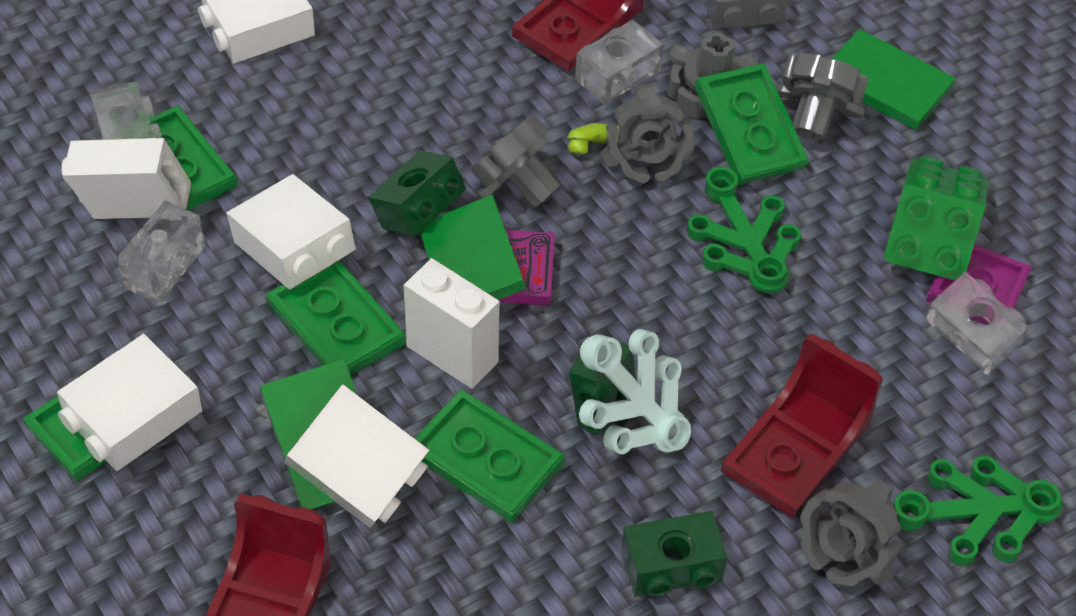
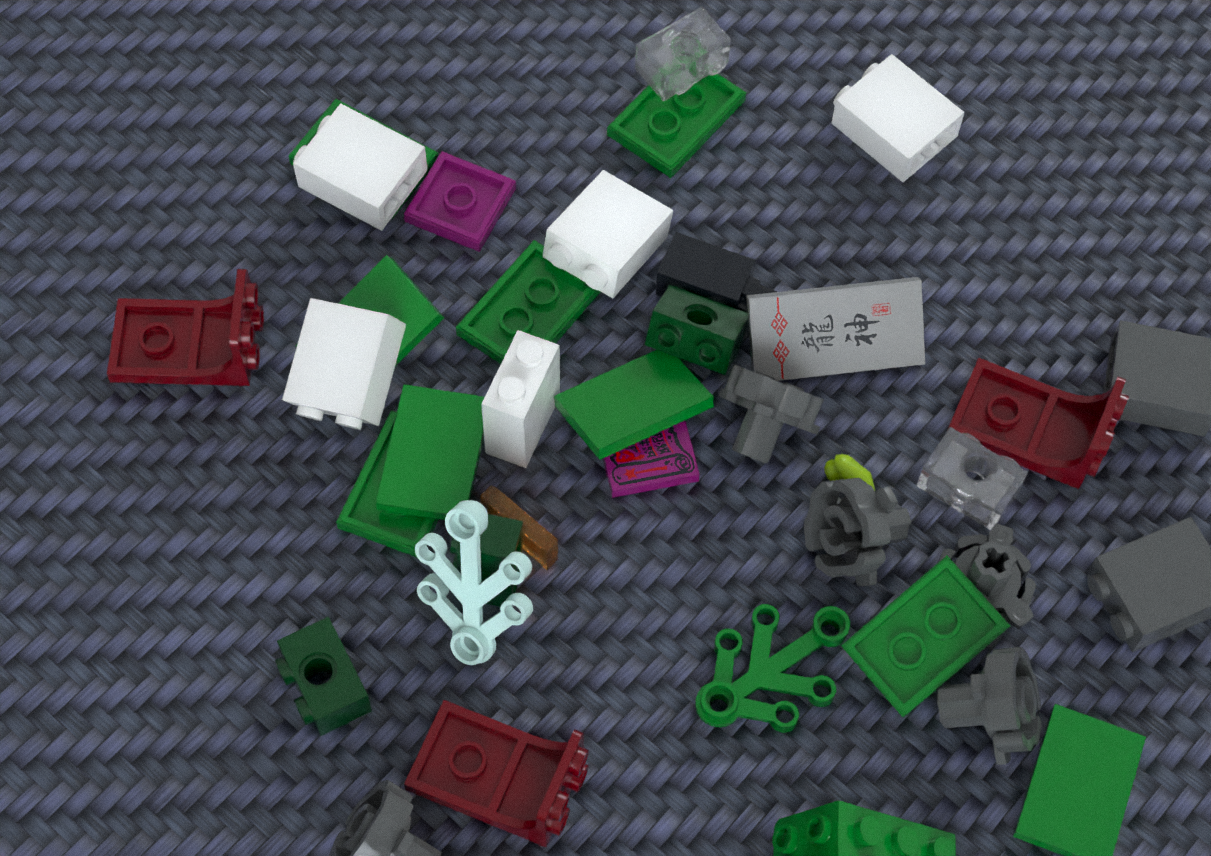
camera: 75 degrees right, 10 degrees up
(125, 176) = (607, 75): white brick -> none
(161, 251) = (543, 135): clear brick -> none
(199, 340) = (460, 201): none -> magenta tile
(362, 171) = (708, 272): none -> black hinge
(455, 100) = (837, 329): none -> light grey tile
(471, 416) = (431, 452): none -> green tile
(551, 376) = (536, 539): none -> clear orange tile

